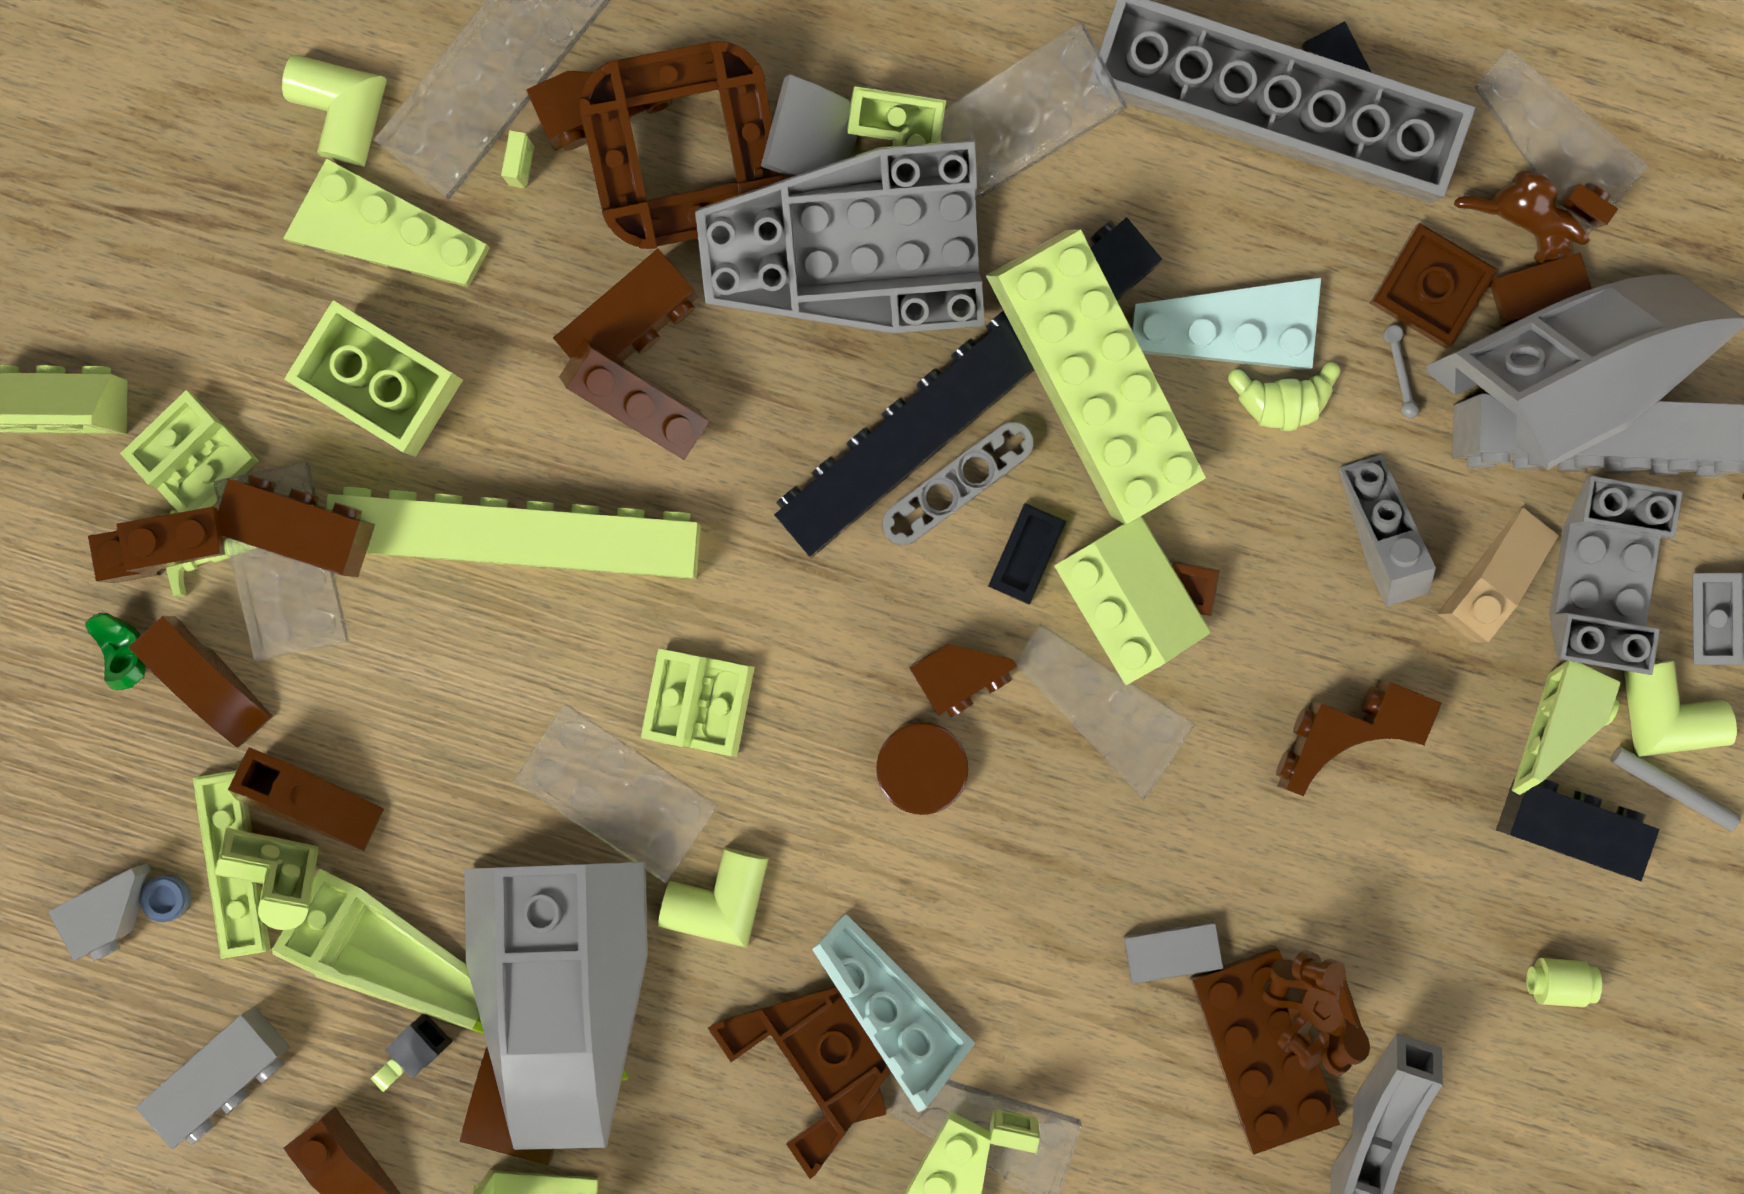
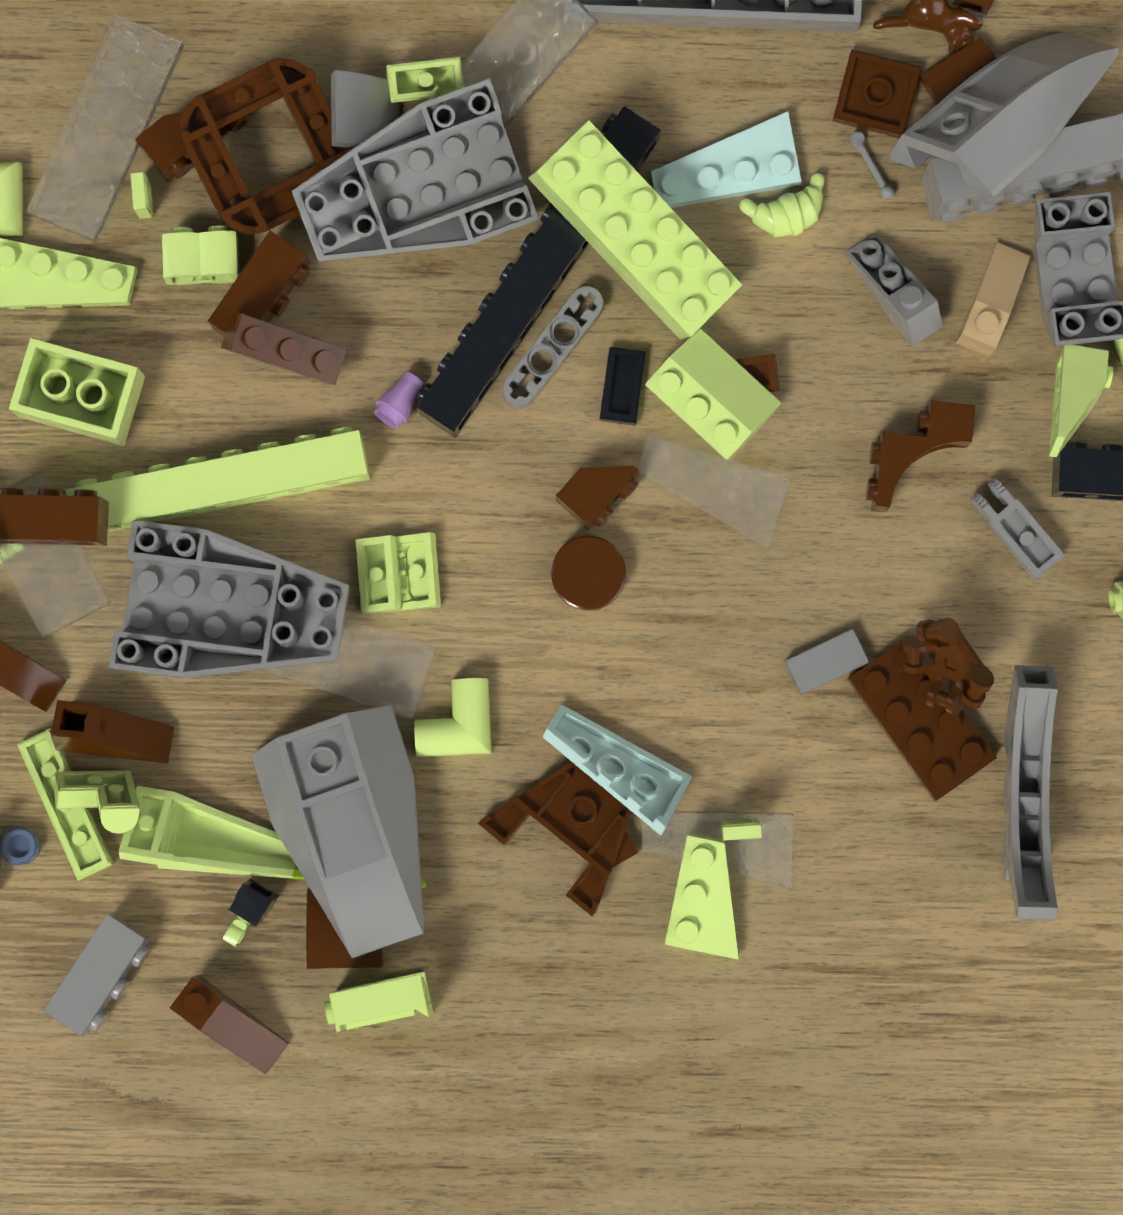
camera: 10 degrees left, 5 degrees down
(474, 692) = (222, 607): none -> light grey wedge
(568, 254) = (201, 256): none -> yellowish green brick
(755, 497) = (398, 401): none -> lavender cone
(1446, 864) = (1019, 531): none -> light grey hinge

